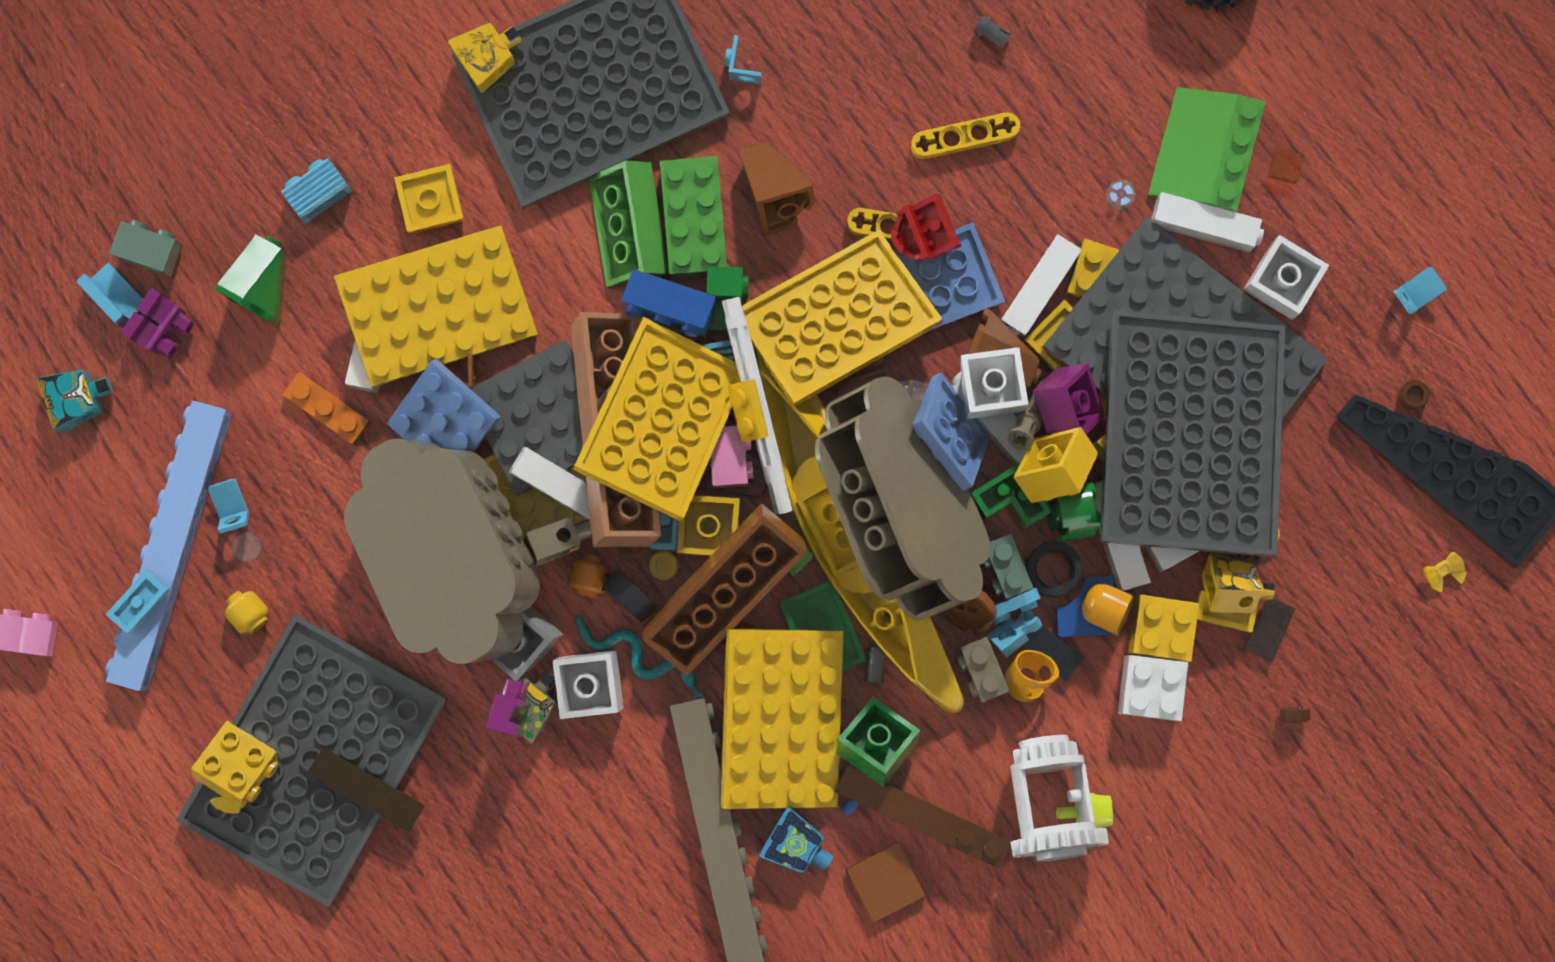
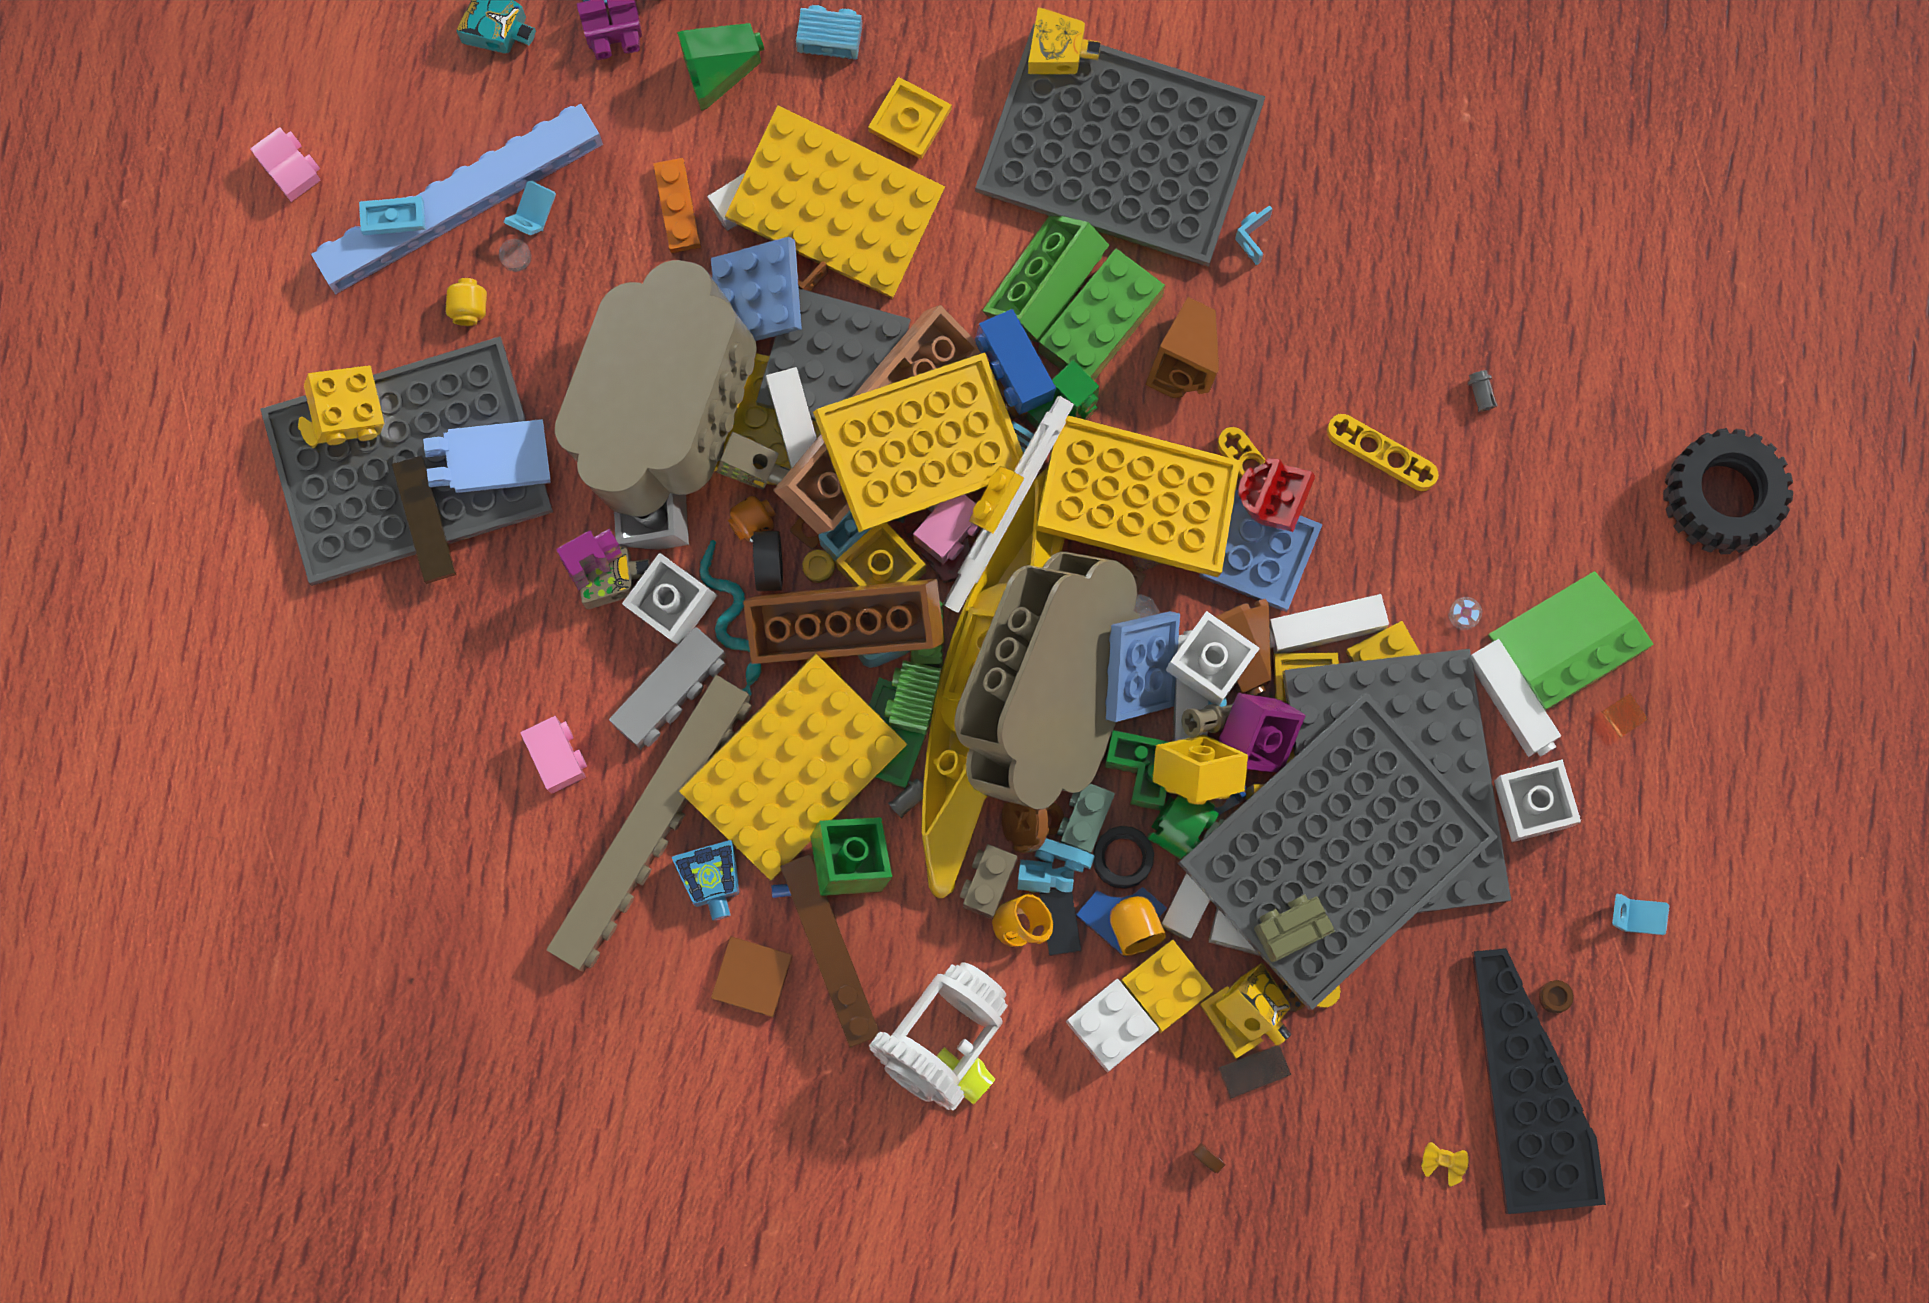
camera: 45 degrees right, 5 degrees down
(371, 703) = (490, 456): none -> light blue tile
(611, 862) = (553, 754): none -> bright pink brick
(644, 744) = (668, 688): none -> light grey brick
(817, 595) = (913, 697): none -> bright green brick
(1217, 514) = (1294, 928): none -> olive brick

